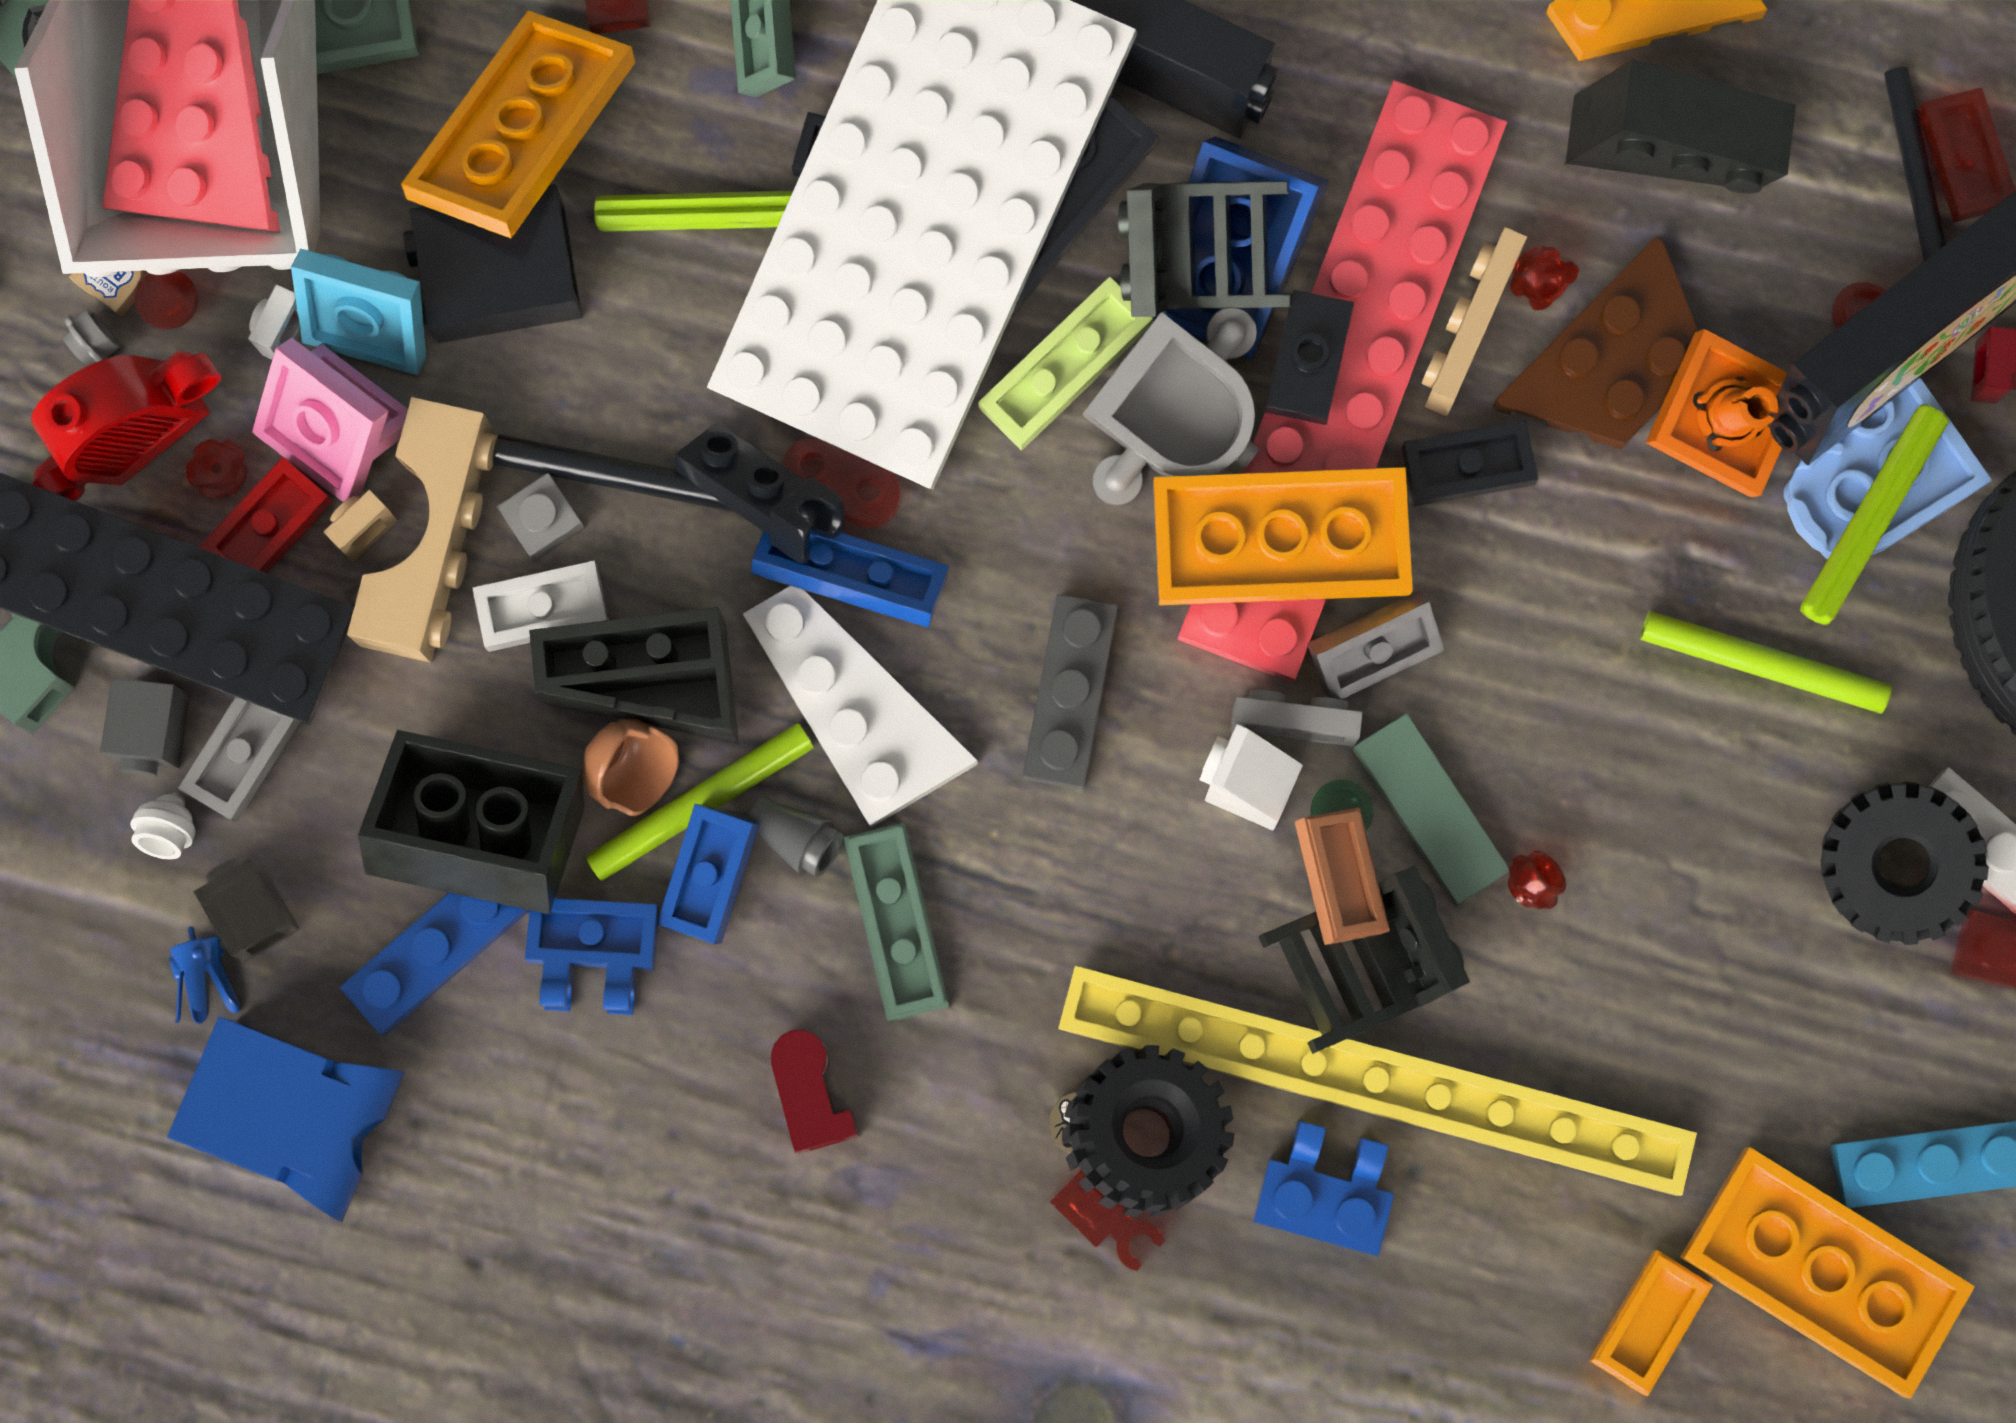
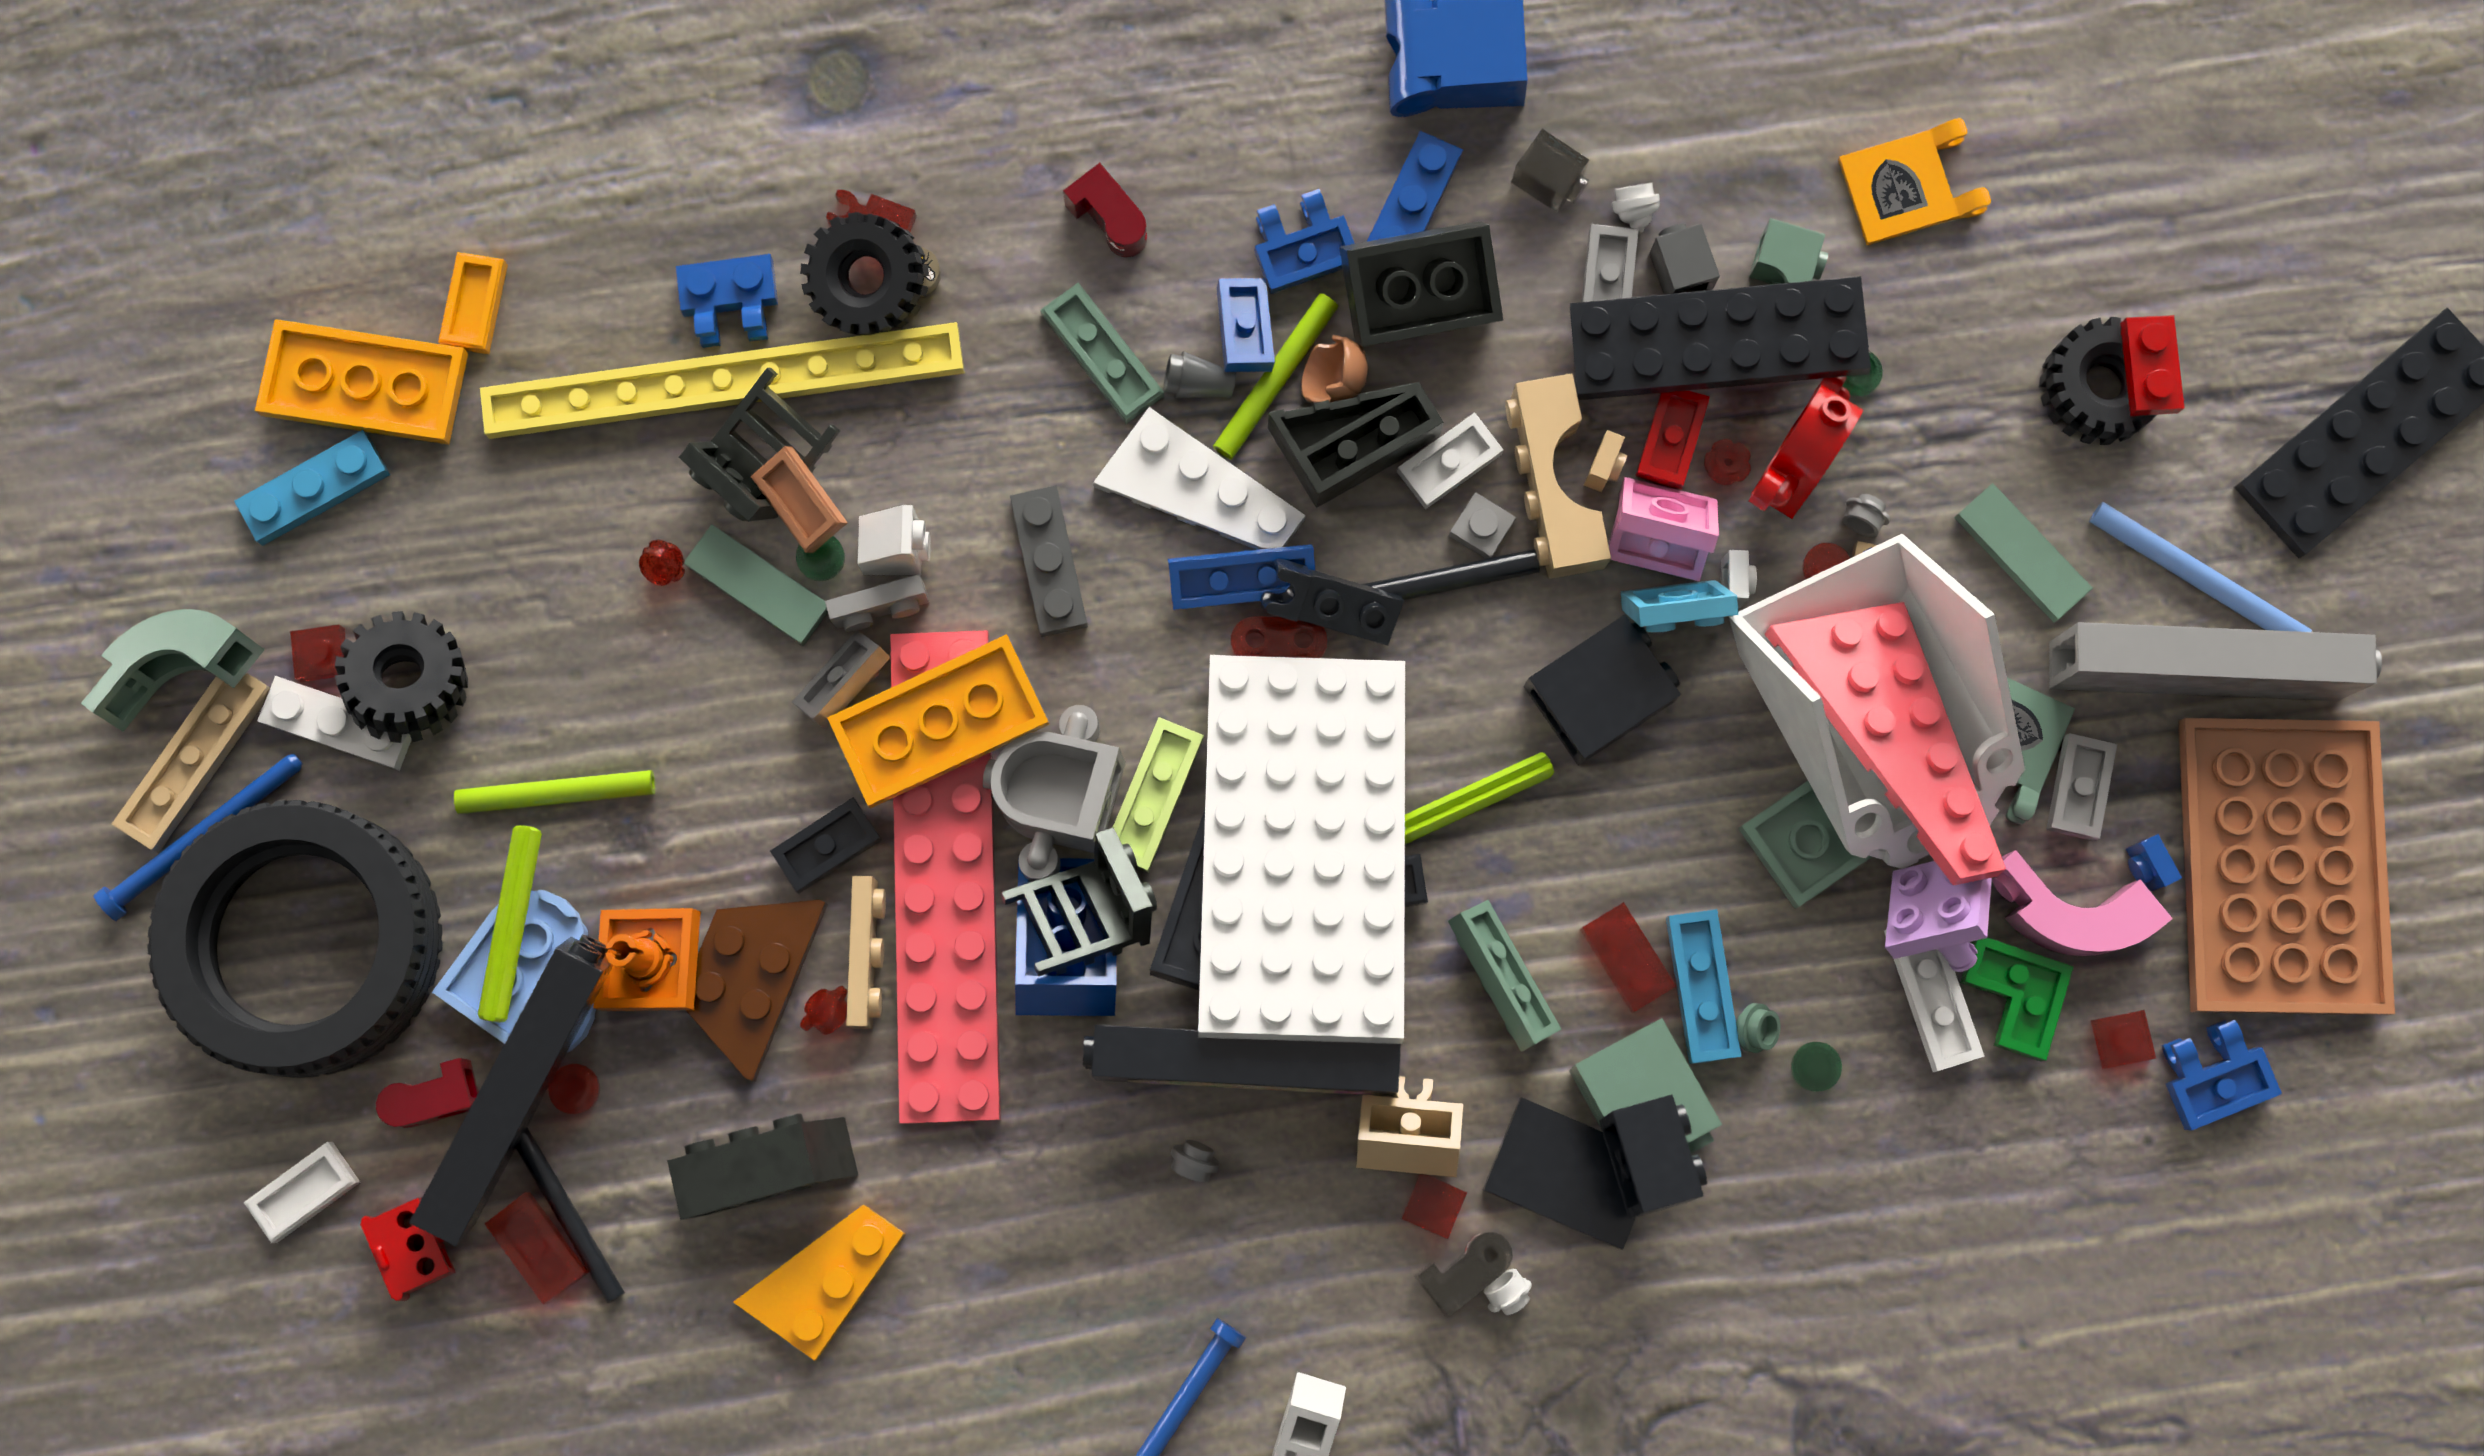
camera: 150 degrees right, 0 degrees up
(191, 962) = (1570, 121): blue piece -> none
(518, 124) = (1633, 793): light orange plate -> none
(1309, 357) = (972, 866): black plate -> none

